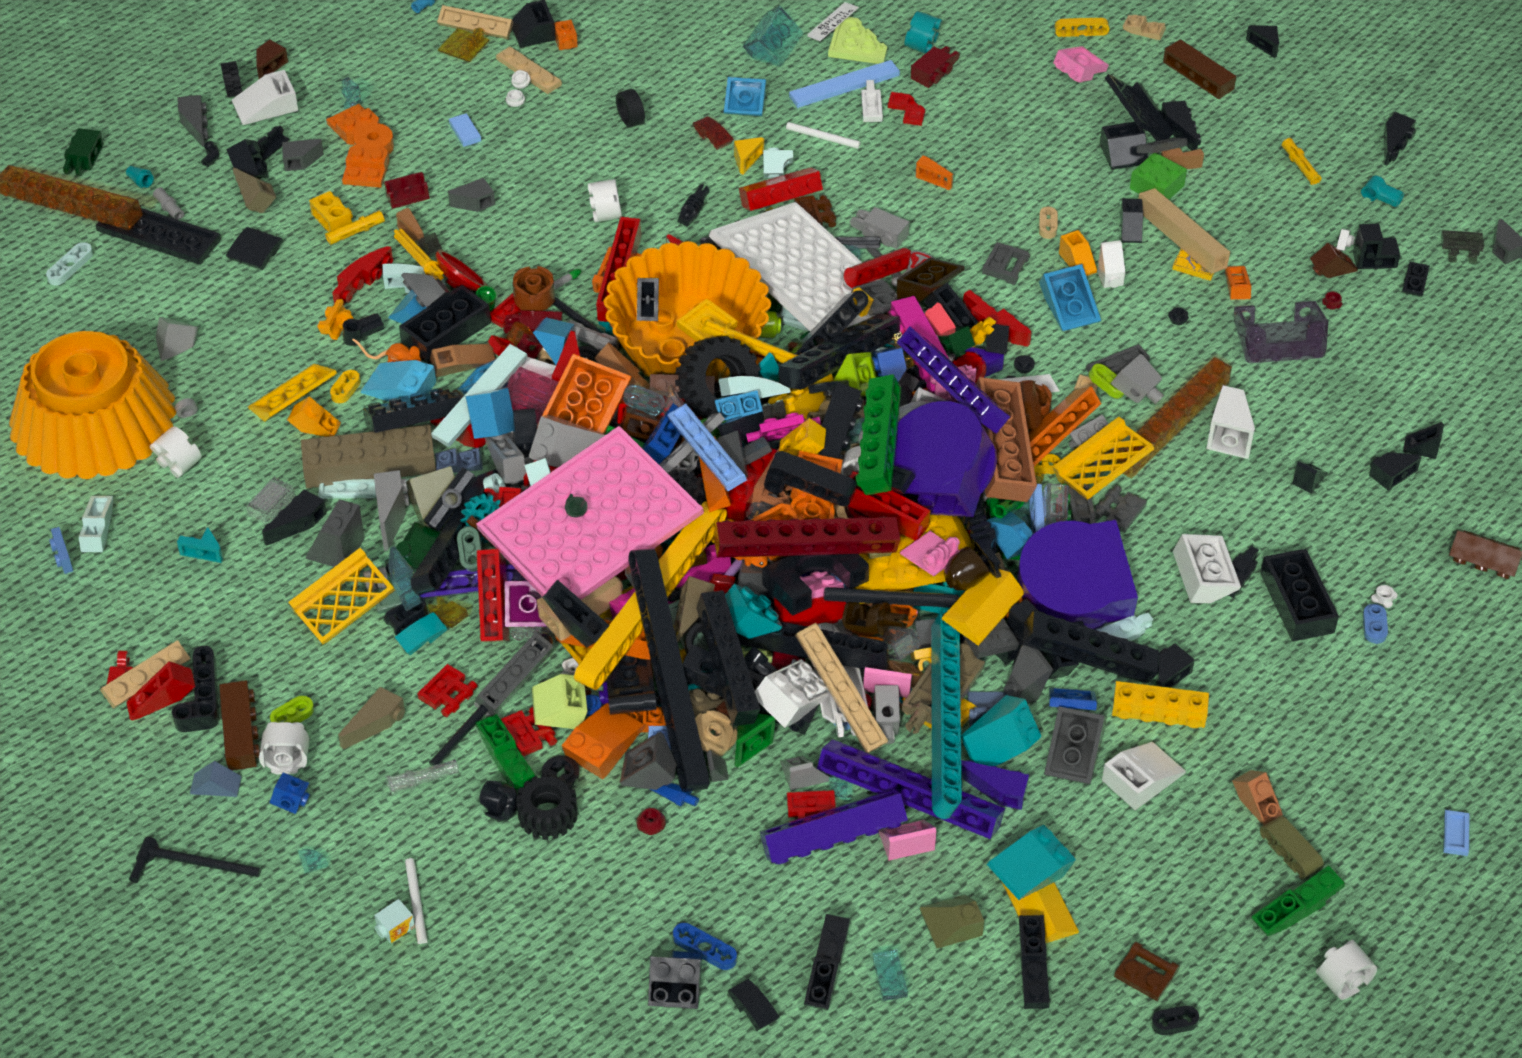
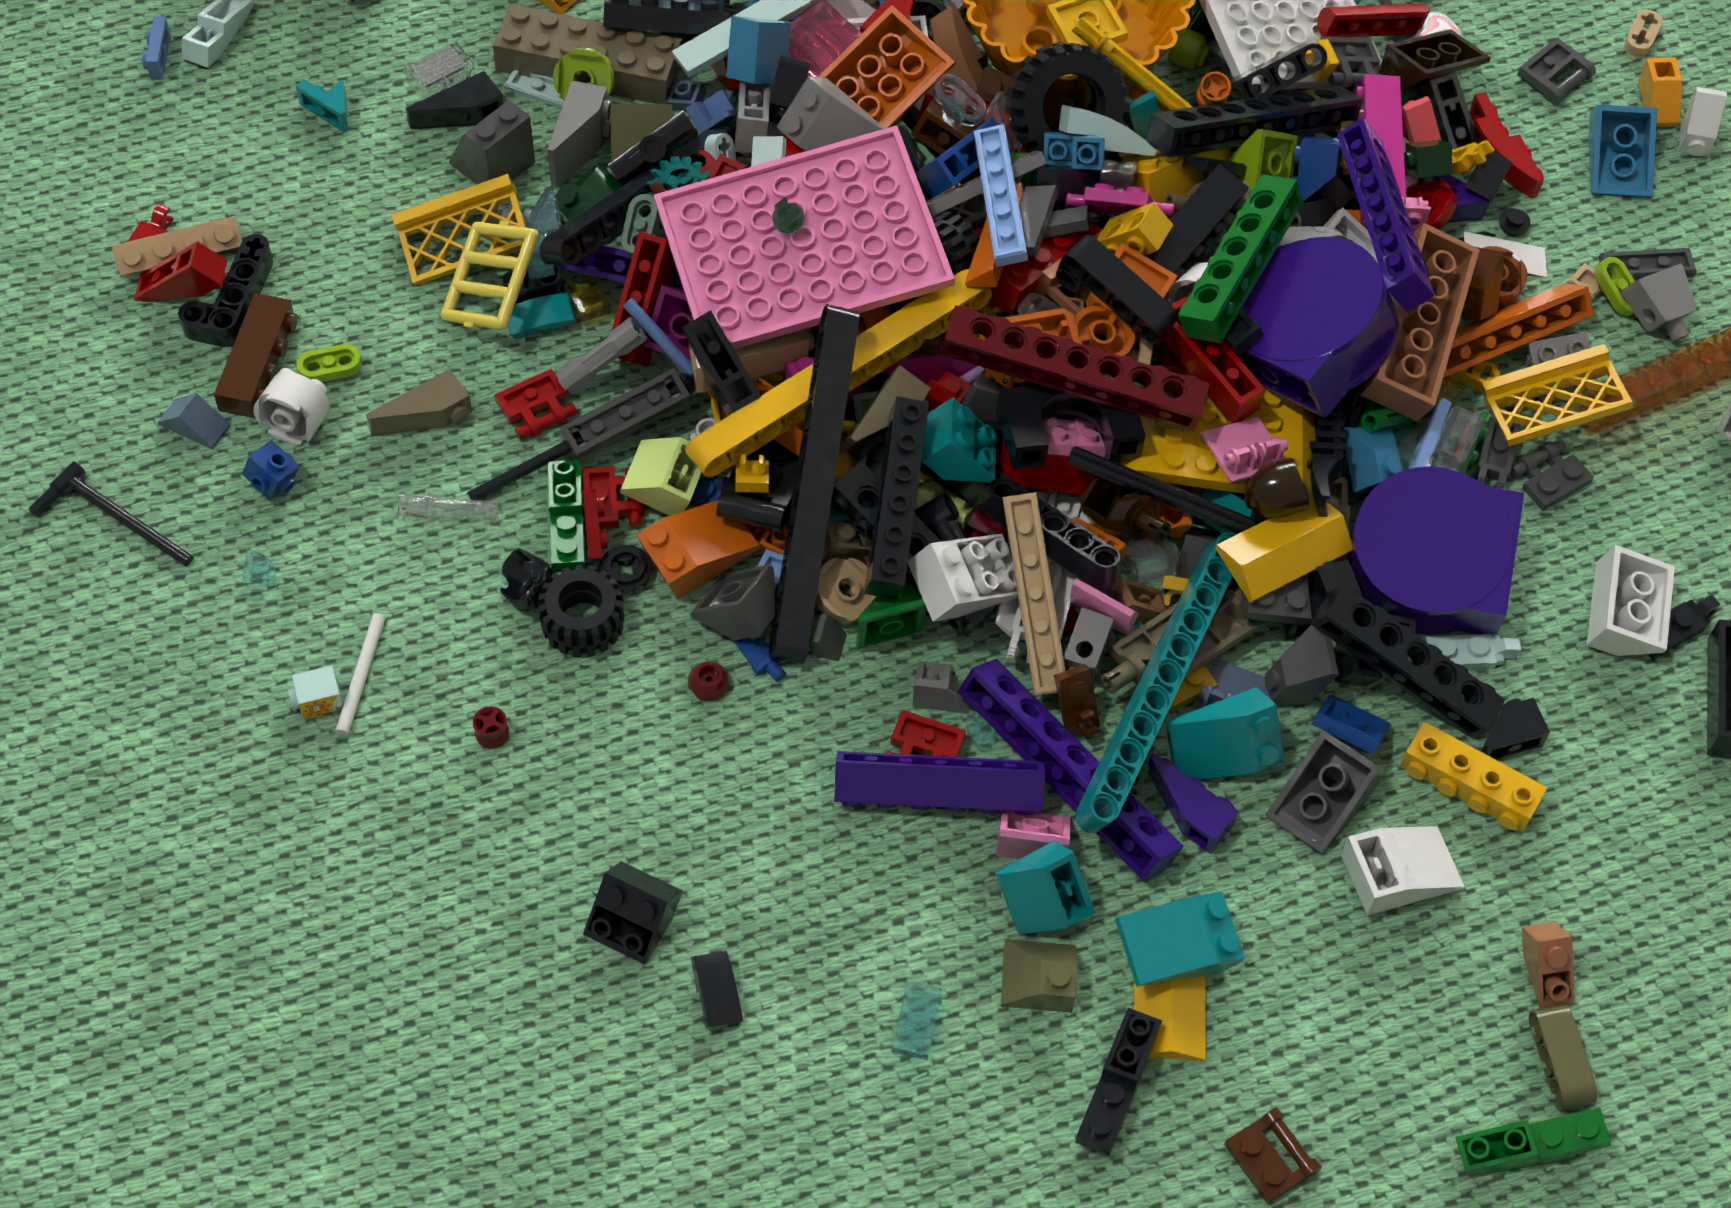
camera: 20 degrees right, 10 degrees up
(366, 464) = (581, 60): none -> lime plate
(400, 623) = (509, 294): none -> light yellow bar
(470, 656) = (583, 368): none -> light grey axle
(474, 462) = (712, 112): none -> medium blue panel
(515, 615) = (658, 336): none -> medium blue bar
(518, 896) = (487, 719): none -> dark red wheel
(525, 742) = (593, 510): none -> red plate
(623, 679) = (752, 475): none -> yellow tile
(700, 937) = (700, 906): blue beam -> none
(806, 336) = (1216, 85): none -> orange wheel
(827, 962) = (841, 971): black slope -> none
(896, 745) = (1077, 701): none -> reddish brown plate
(934, 865) = (1045, 890): none -> teal slope

